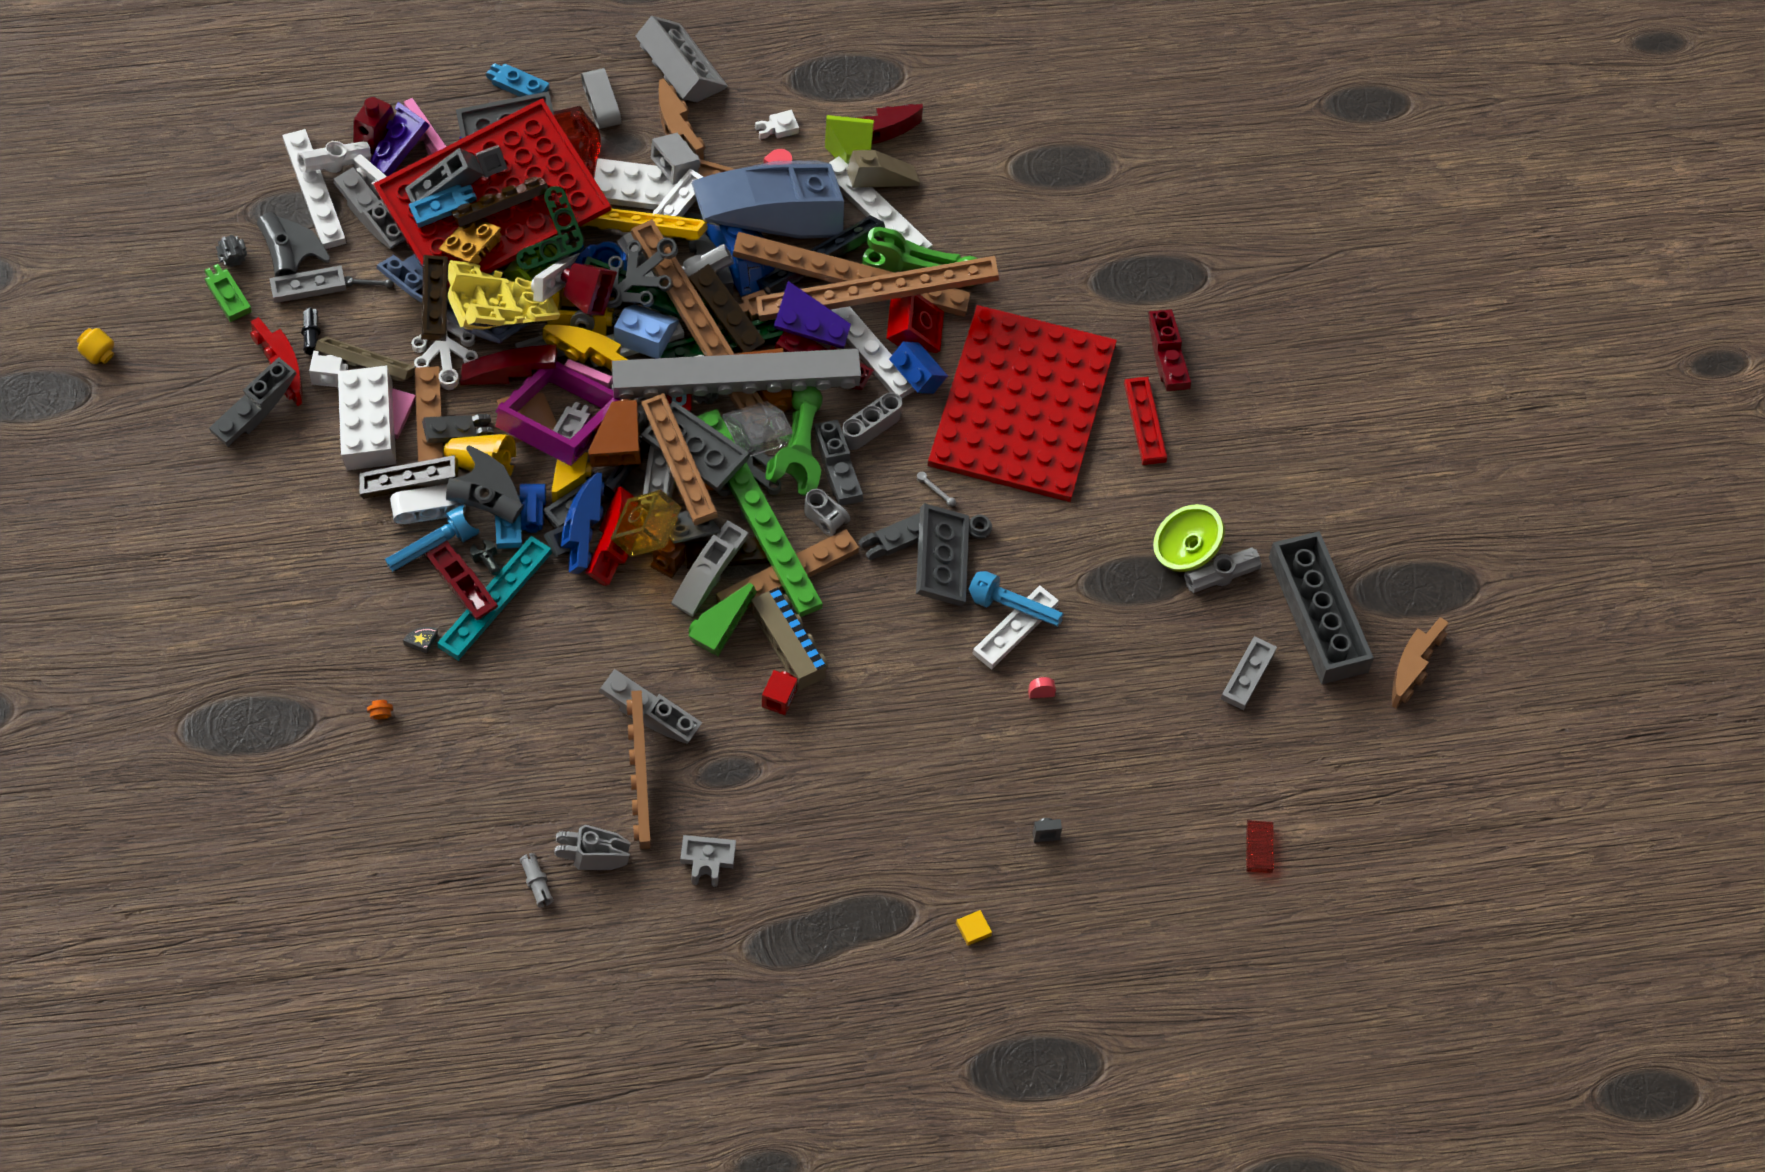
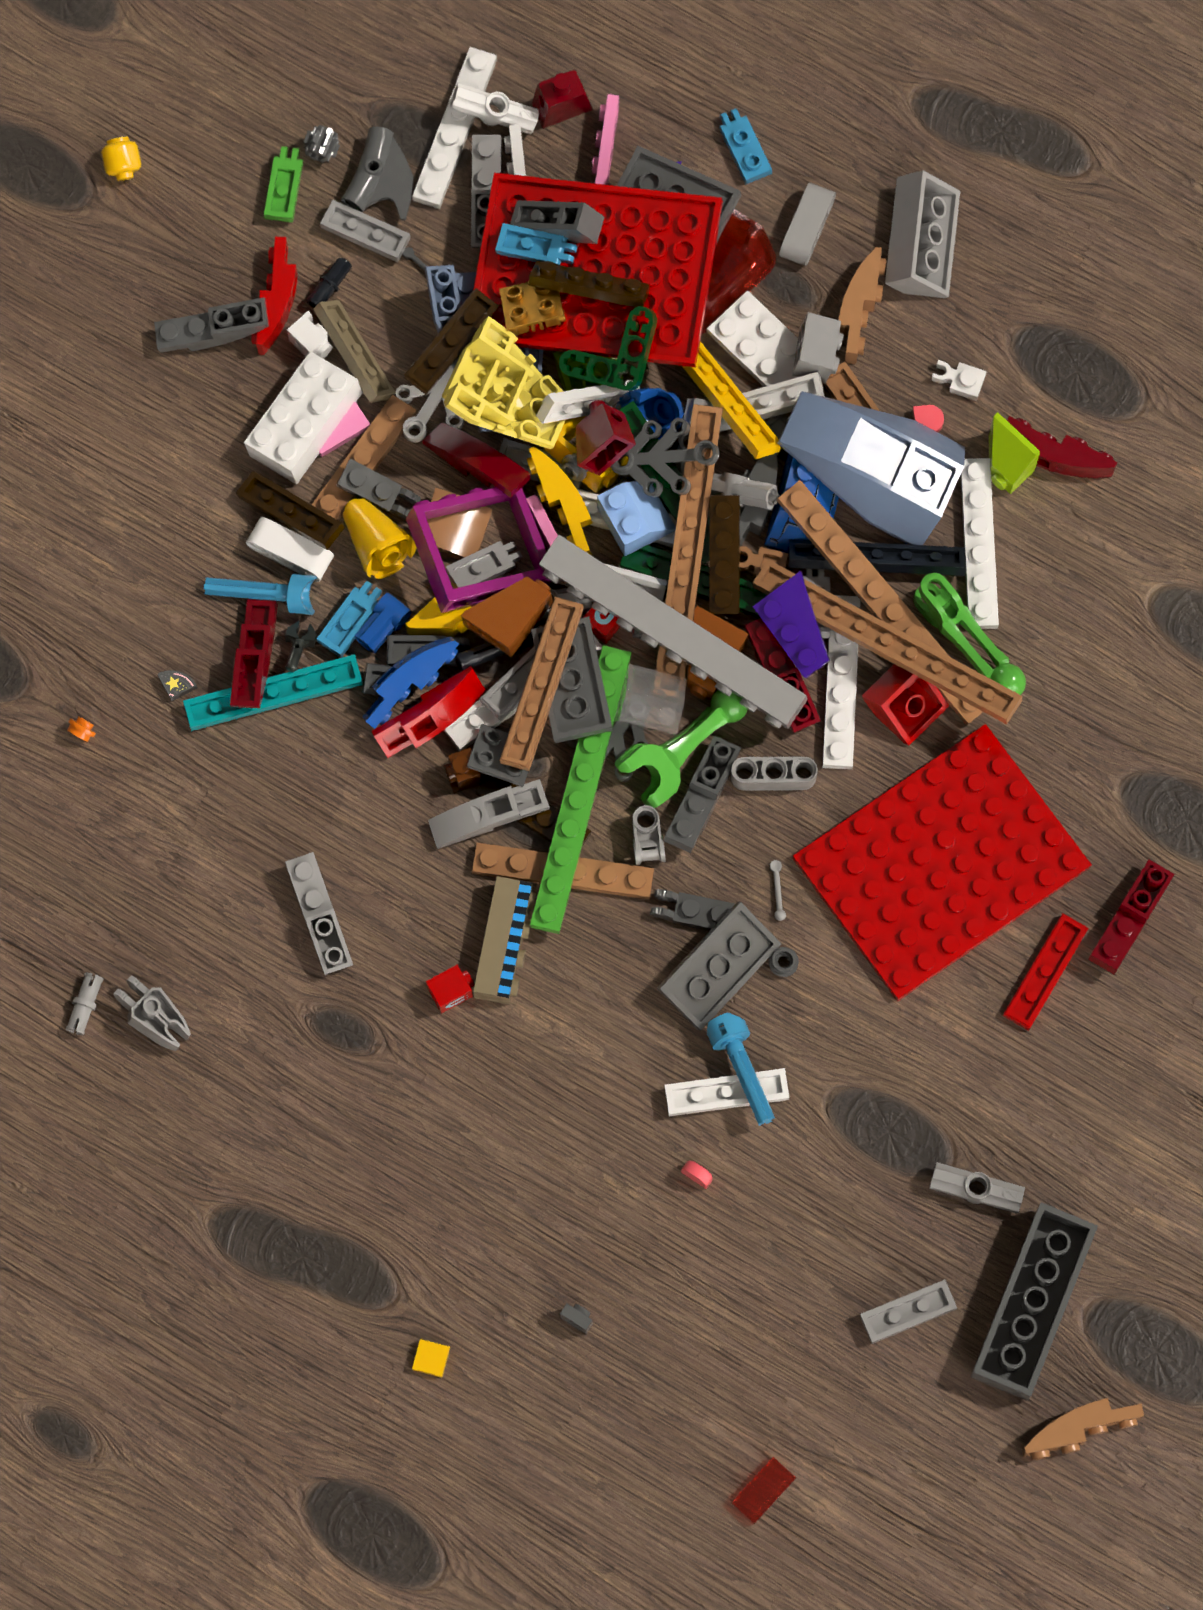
camera: 45 degrees right, 15 degrees up
(400, 139) = (576, 132): dark purple wing -> none
(486, 477) = (355, 572): dark grey pin -> none
(491, 161) = (615, 233): dark grey plate -> none
(639, 780) = (246, 980): medium nougat plate -> none
(646, 523) = (456, 728): clear yellow brick -> none
(707, 856) = (251, 1100): light grey plate -> none
(719, 622) = (444, 878): bright green slope -> none
(877, 169) = (1013, 508): dark tan slope -> none
(918, 367) = (864, 751): blue brick -> none
(1189, 538) = (962, 1121): lime dish -> none

